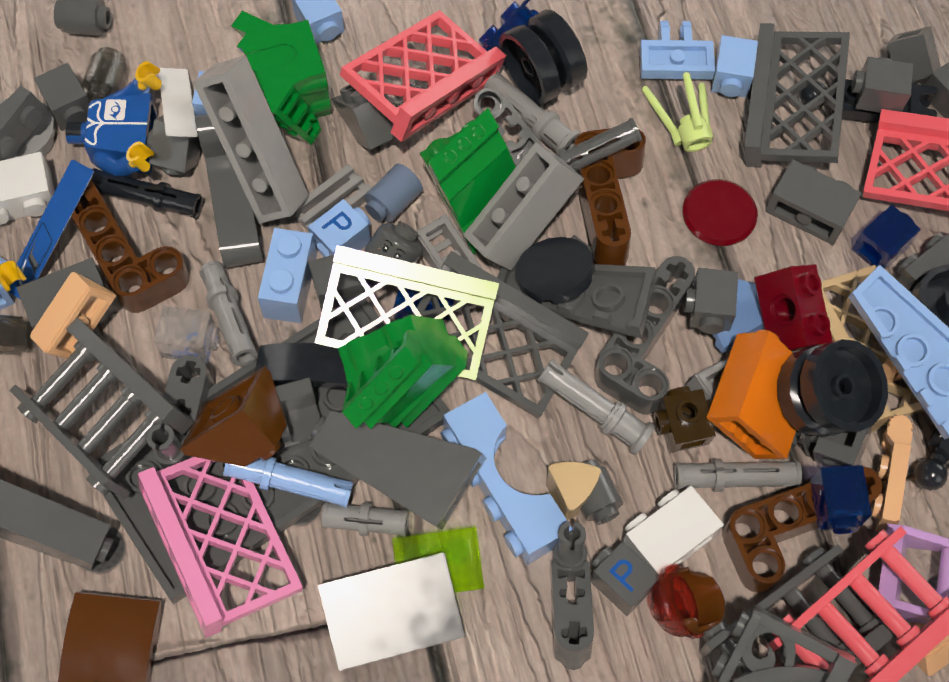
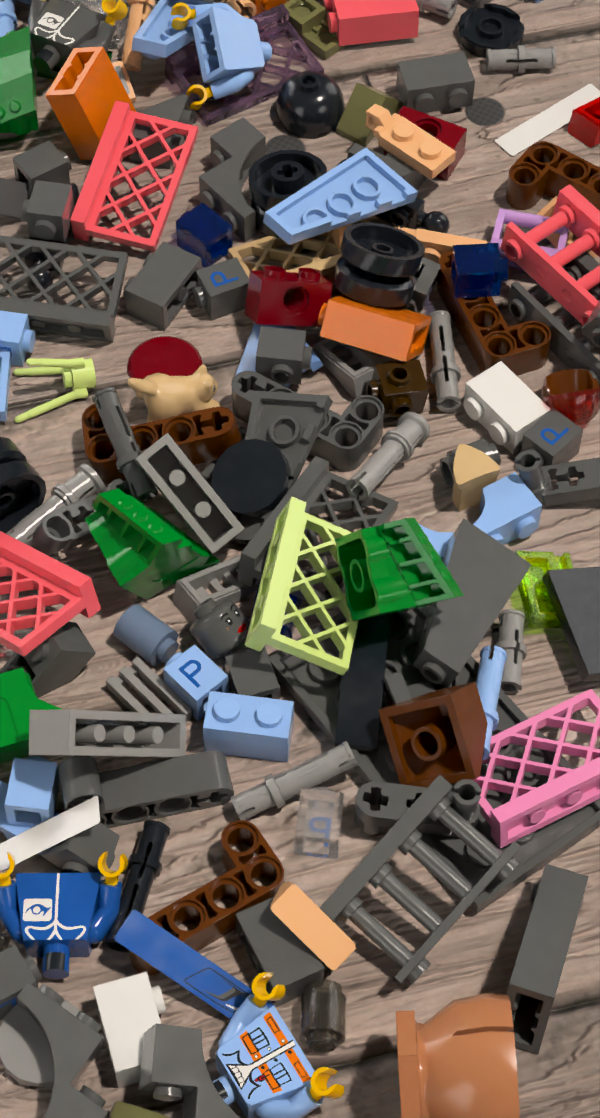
camera: 90 degrees left, 10 degrees down
(667, 205) = (175, 395): none -> tan animal
(816, 247) = (221, 288): none -> dark grey brick

